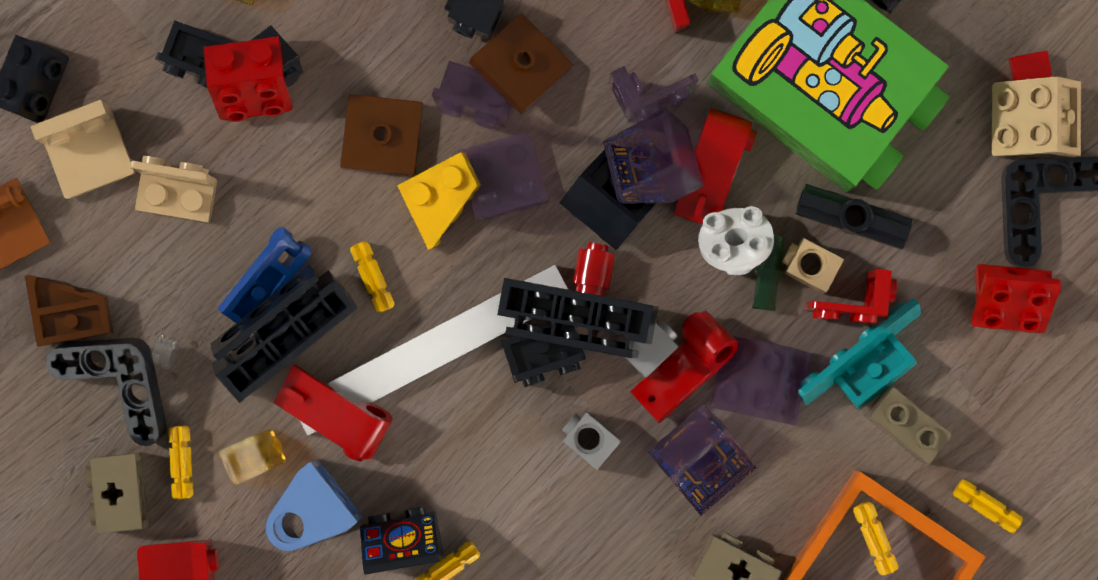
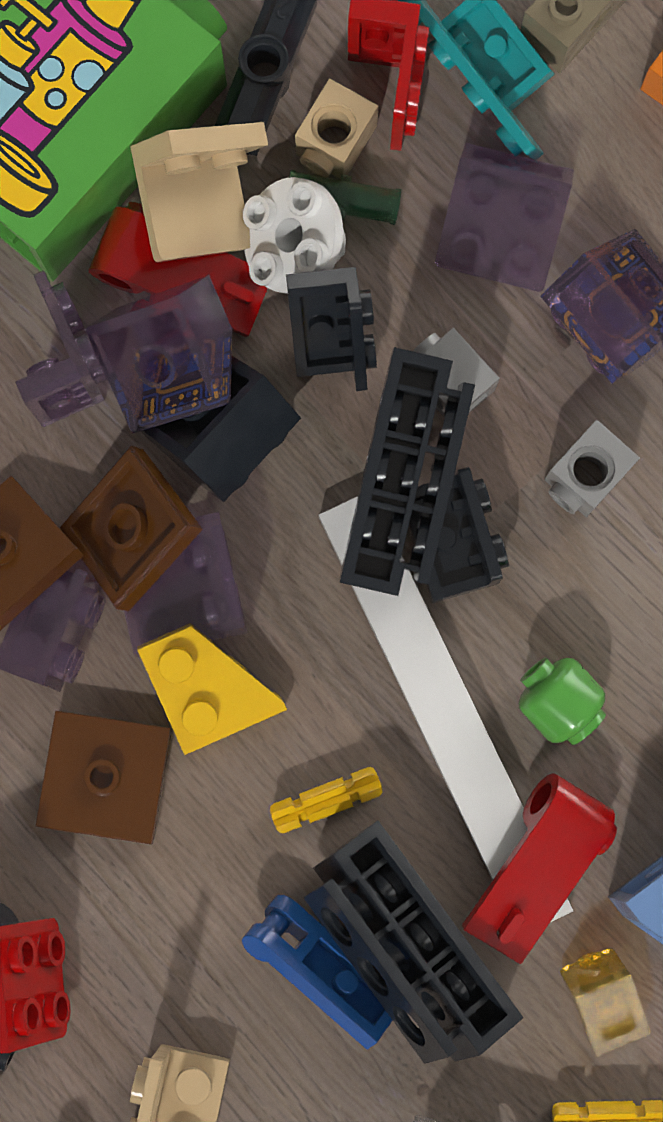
camera: 90 degrees left, 5 degrees down
(439, 424) = (562, 700): none -> bright green head
(538, 143) = (131, 528): none -> reddish brown plate
(594, 269) = (328, 455): red brick -> none
(677, 266) = (329, 324): none -> black bracket
(702, 354) = (460, 294): red door -> none
(759, 174) = (194, 189): none -> tan bracket

